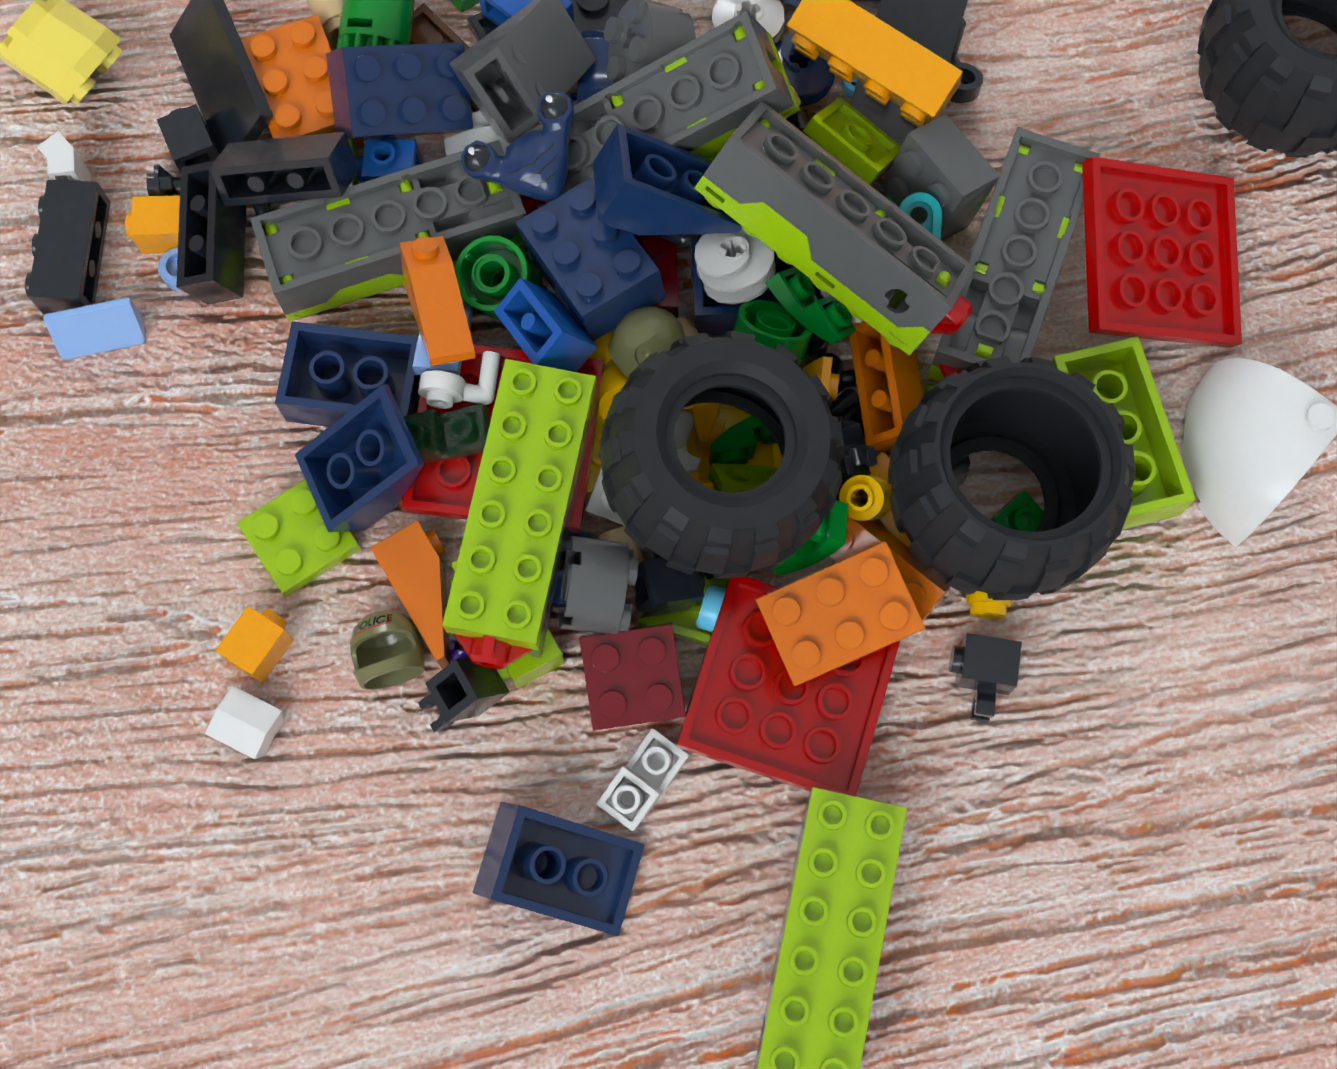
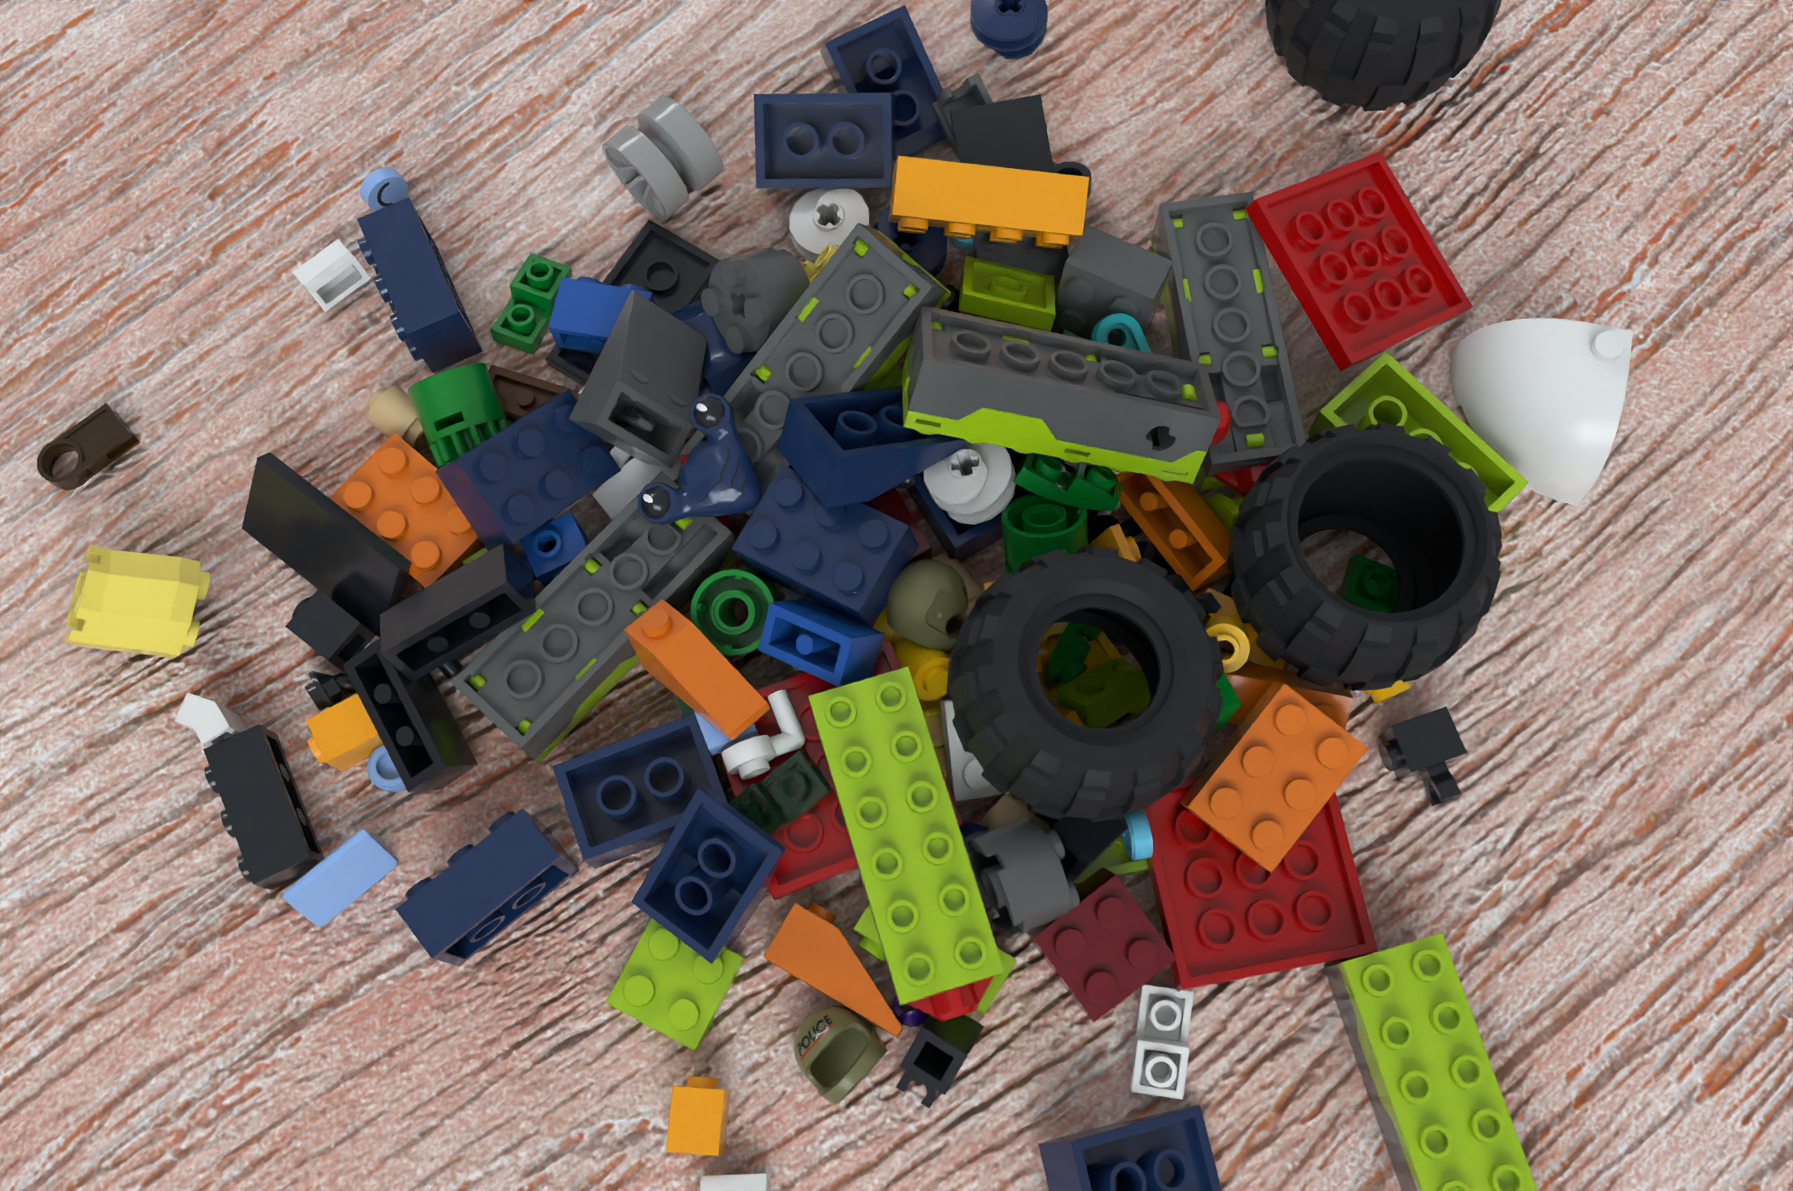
camera: 25 degrees left, 0 degrees up
(194, 388) = (486, 888): none -> dark blue brick

